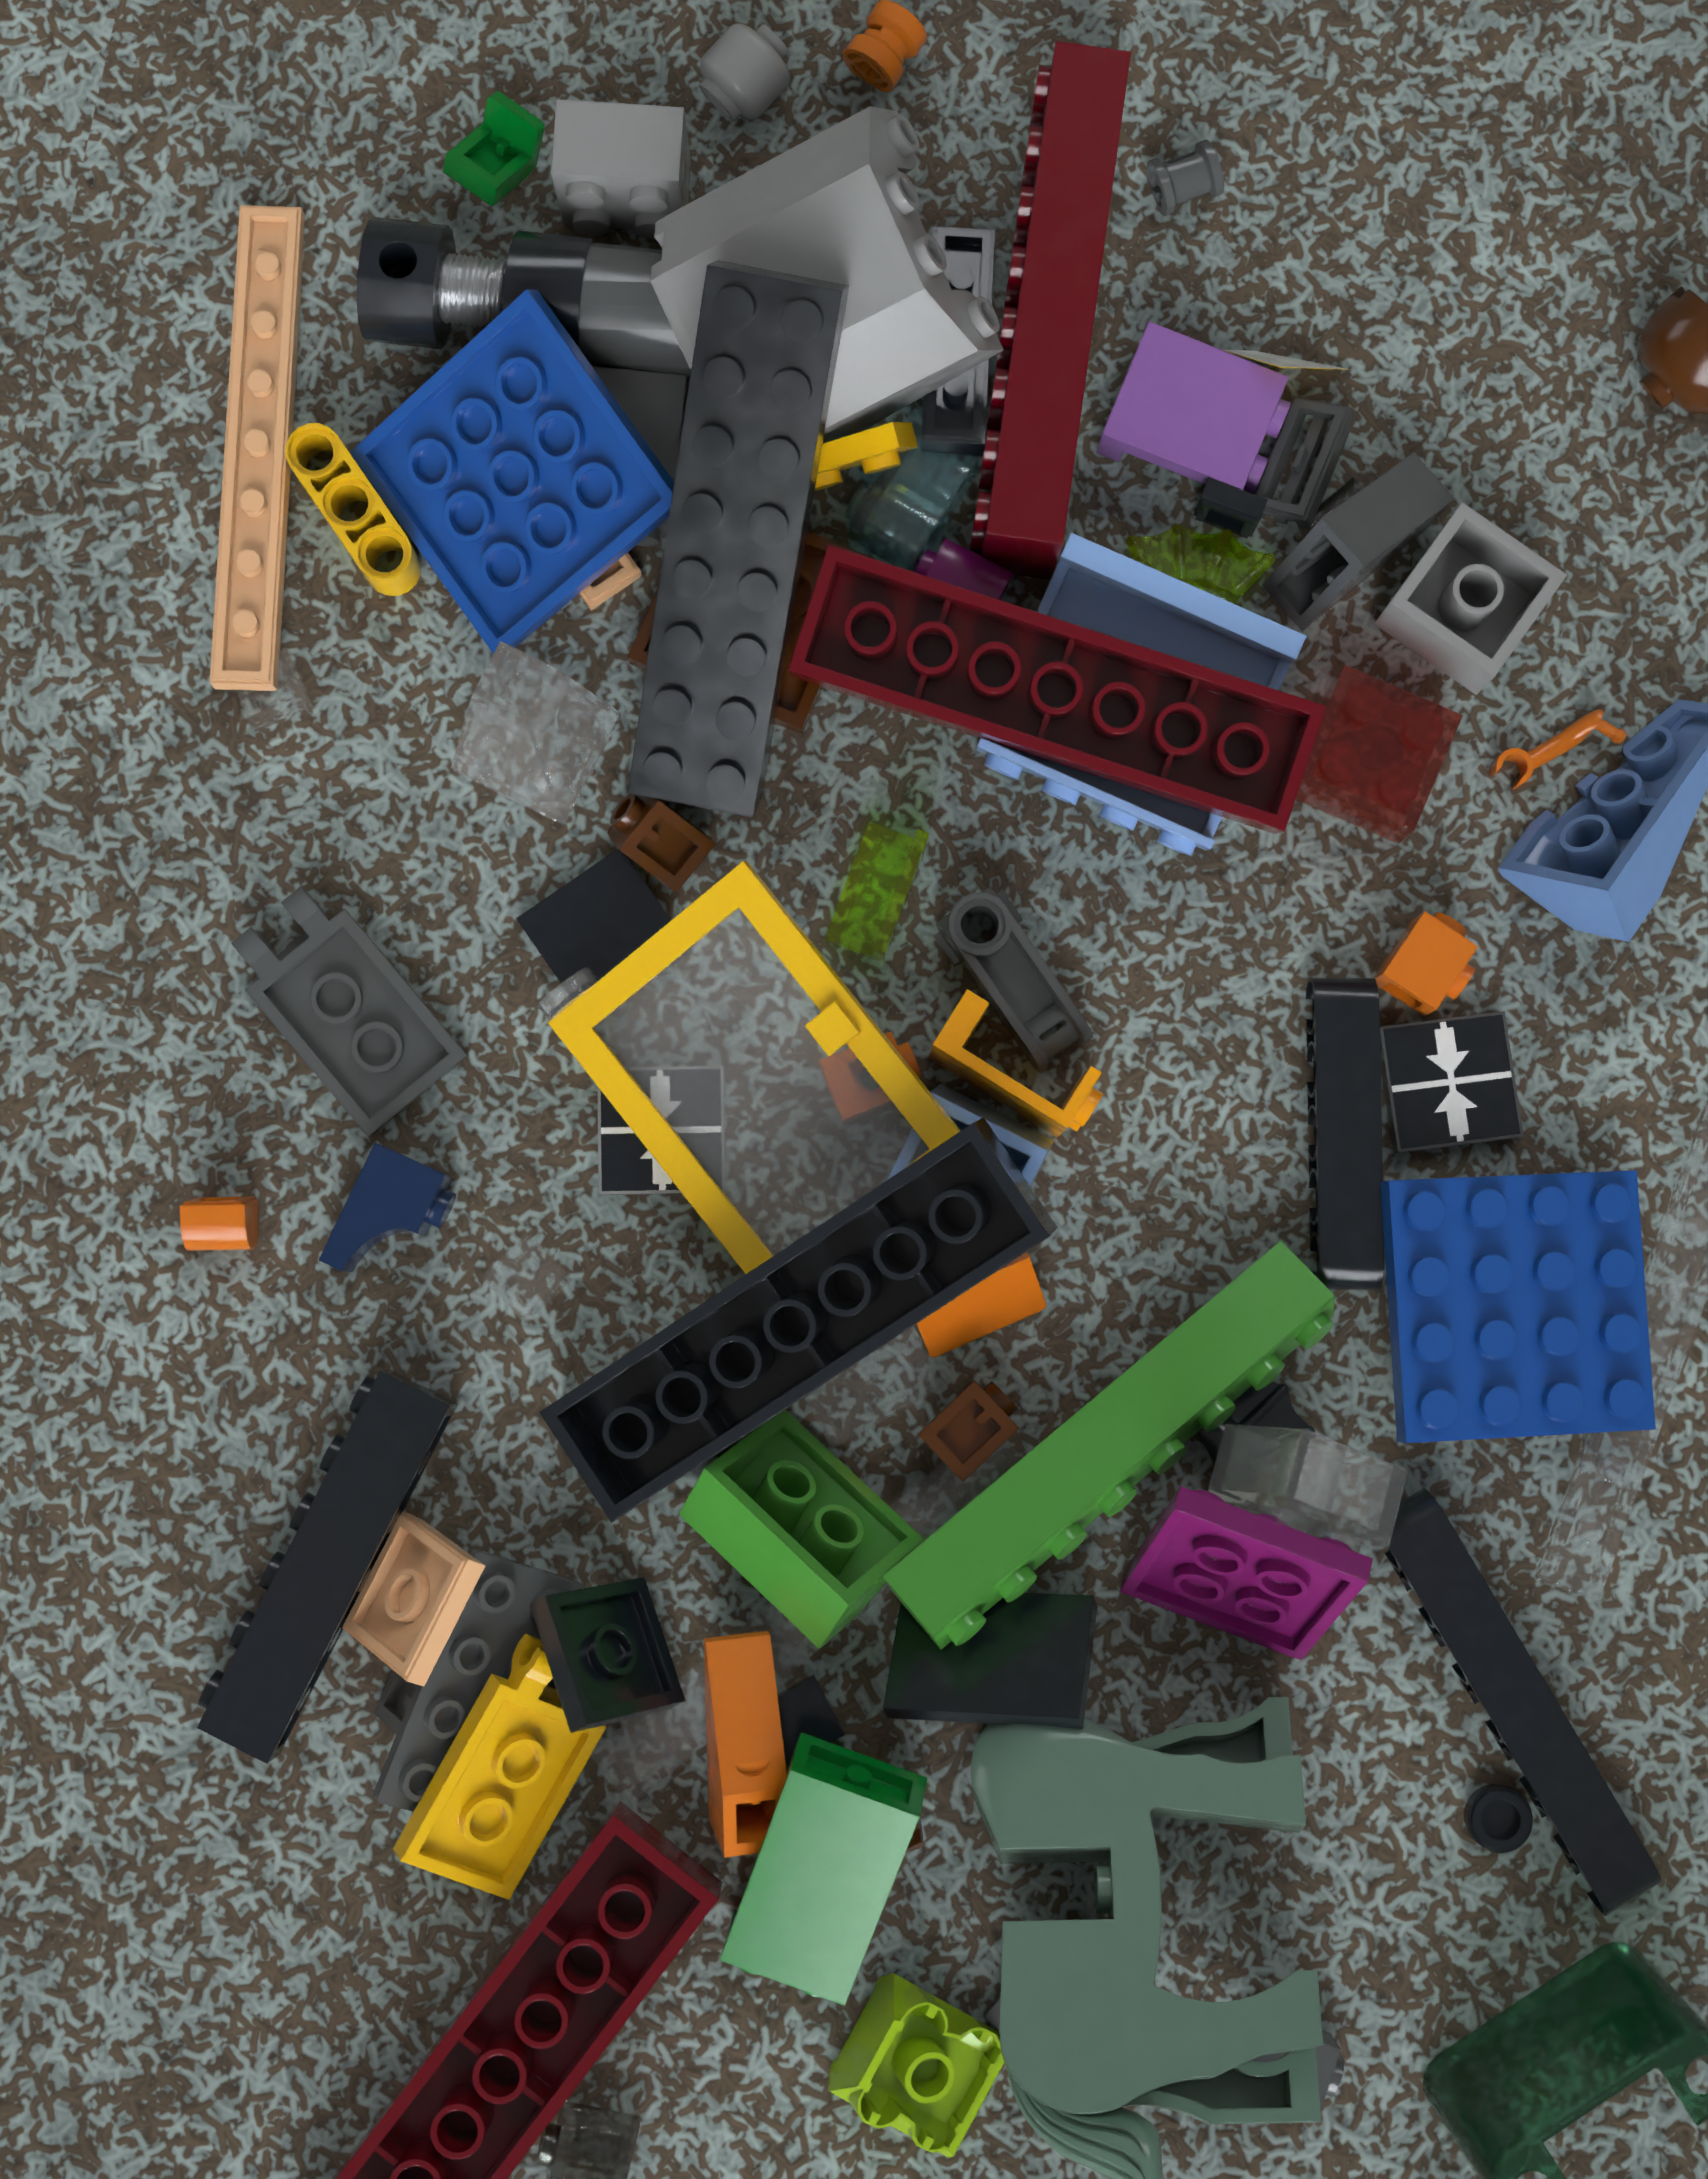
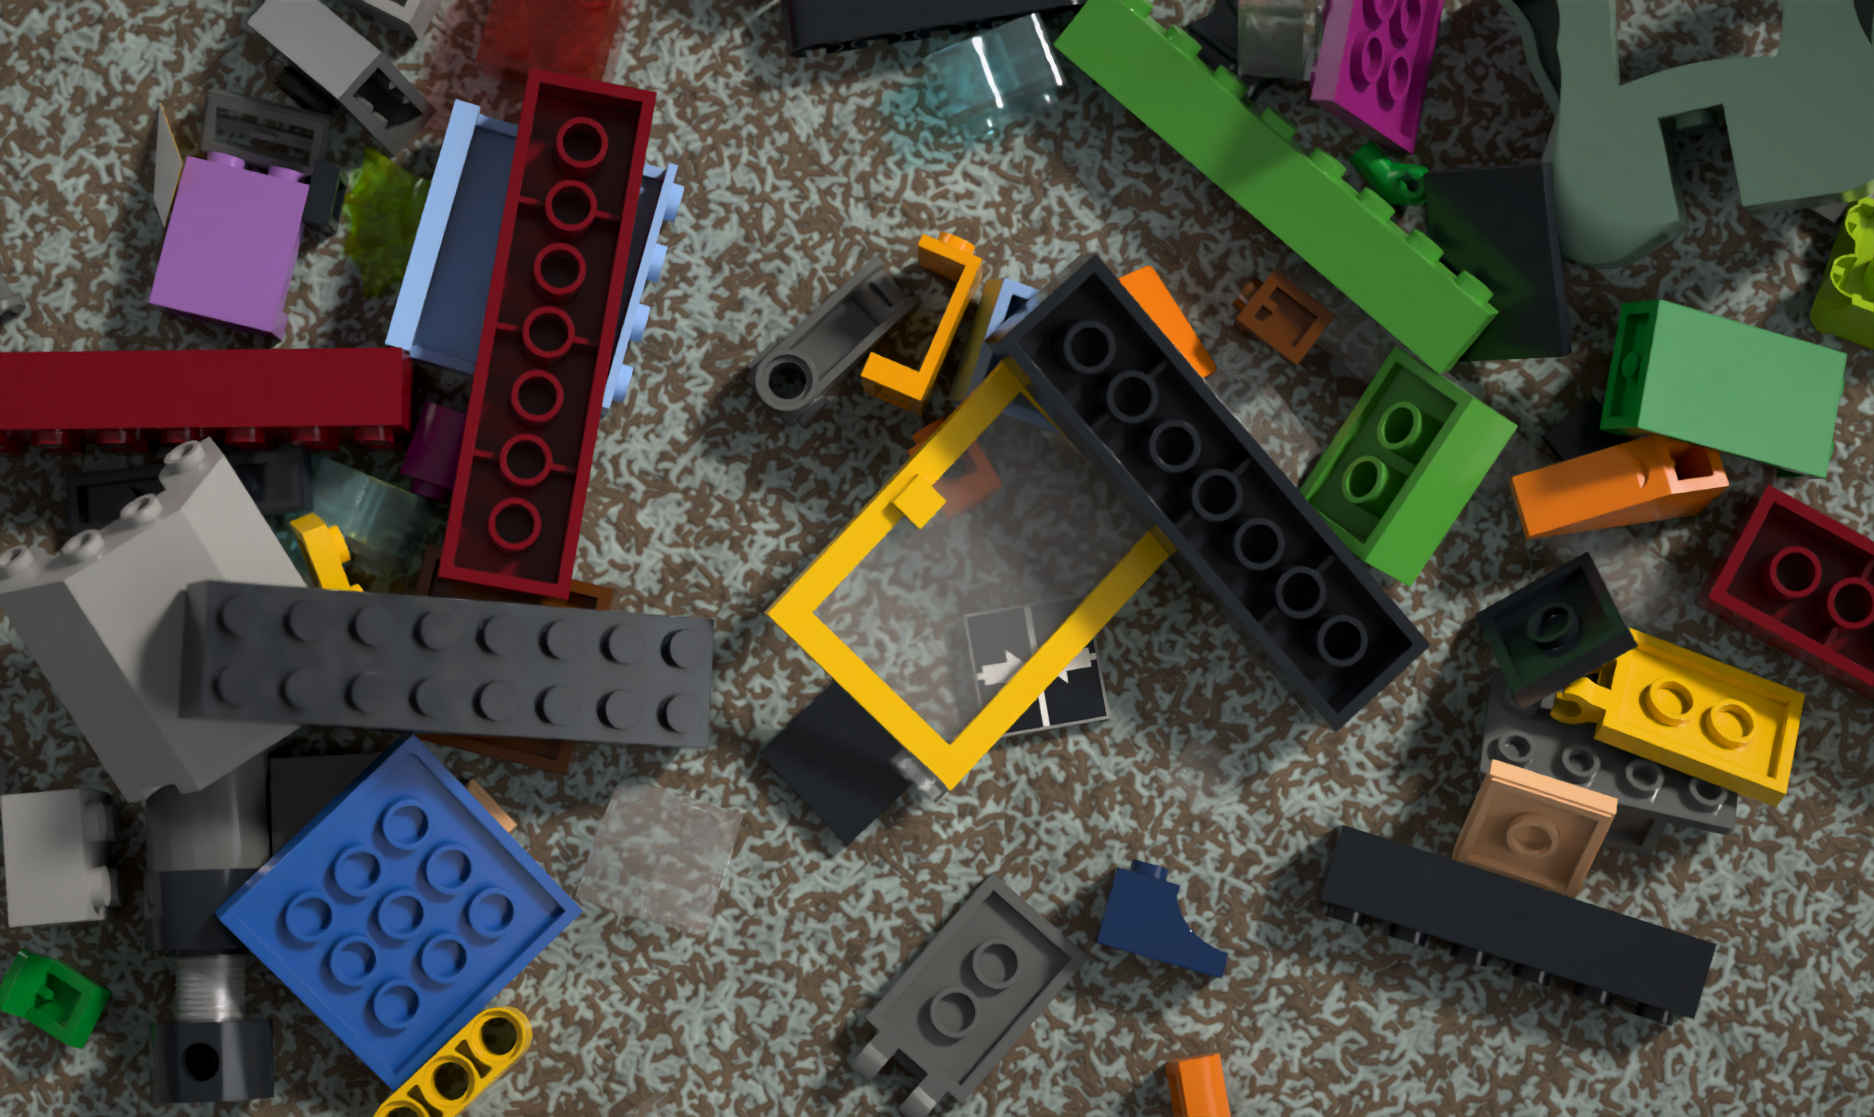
camera: 90 degrees left, 0 degrees up
(658, 839) = (746, 715): reddish brown bracket -> none
(877, 891) = (764, 489): clear neon green panel -> none
(1093, 1566) = (1391, 181): none -> green arm
(1257, 1179) = (995, 77): none -> clear light blue brick

